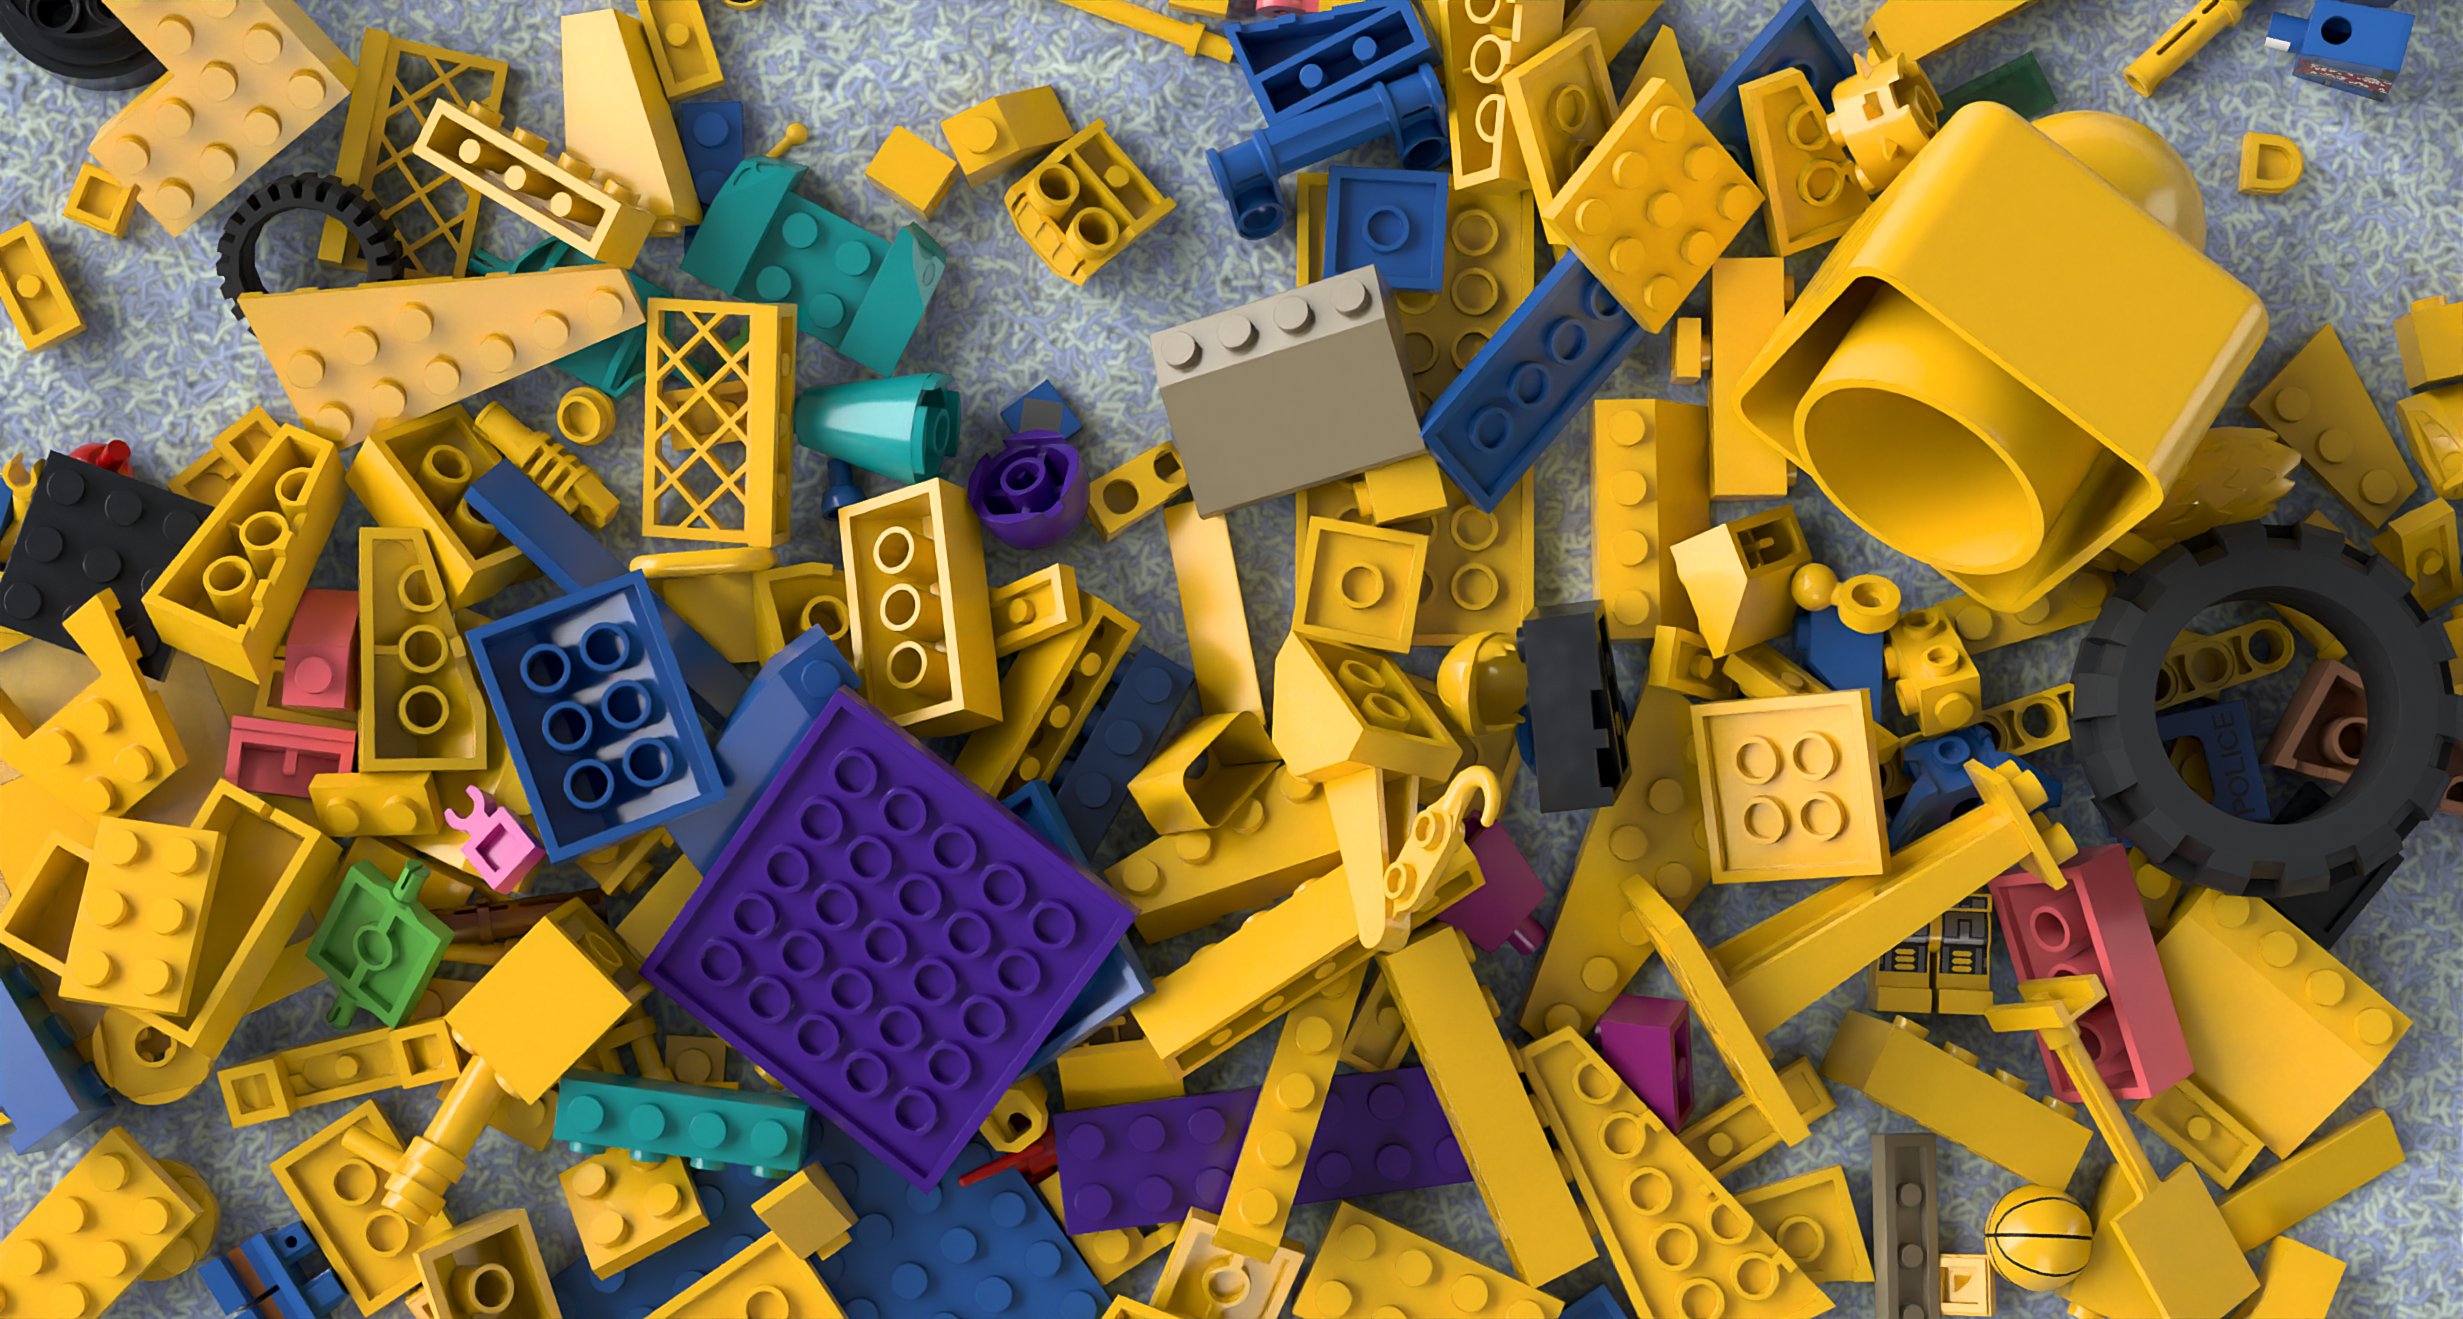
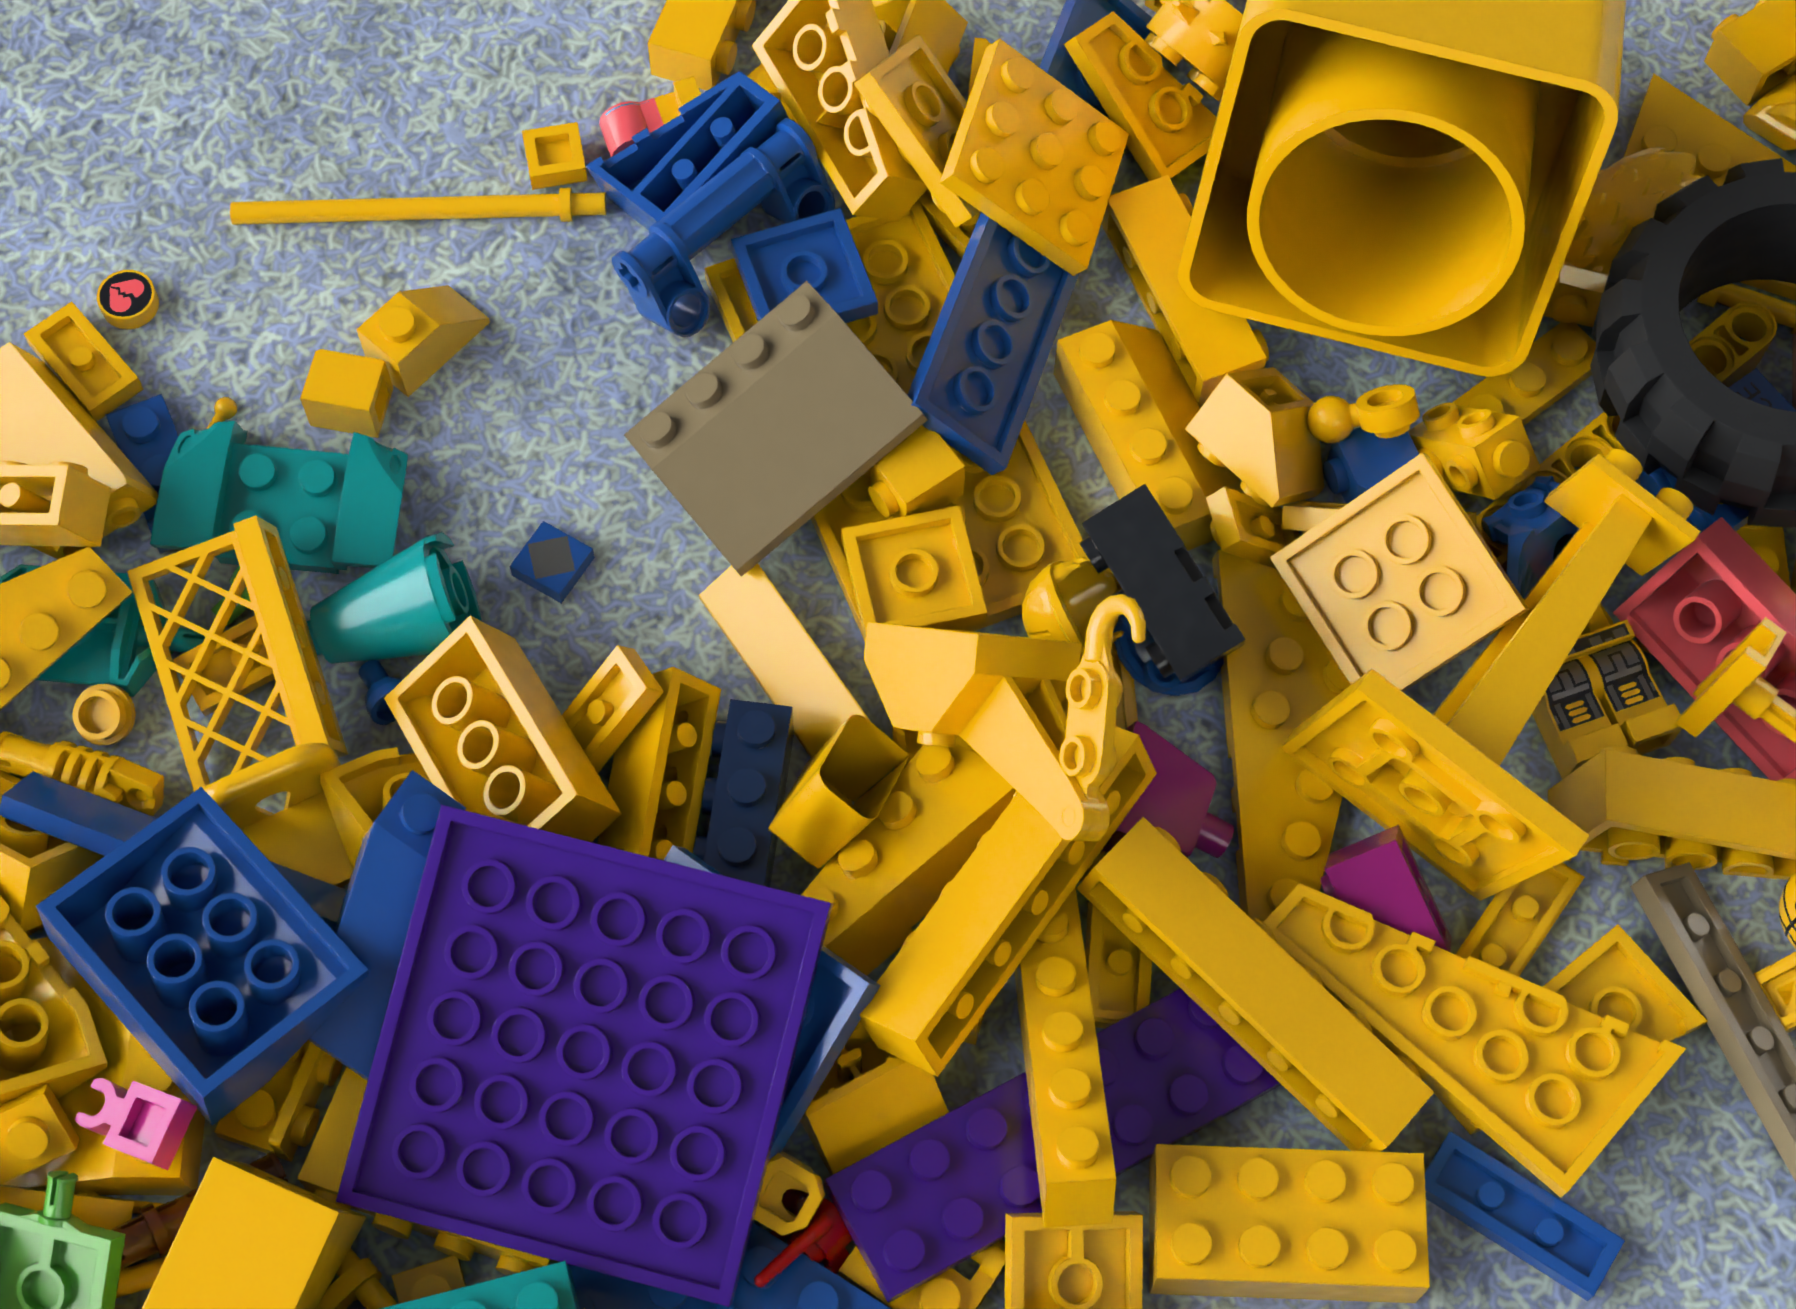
camera: 20 degrees left, 20 degrees down
(1031, 490) = (569, 612): dark purple cylinder -> none
(1080, 192) = (517, 364): yellow slope -> none
(1136, 490) = (664, 584): yellow leg -> none
(1688, 351) = (1119, 285): yellow plate -> none

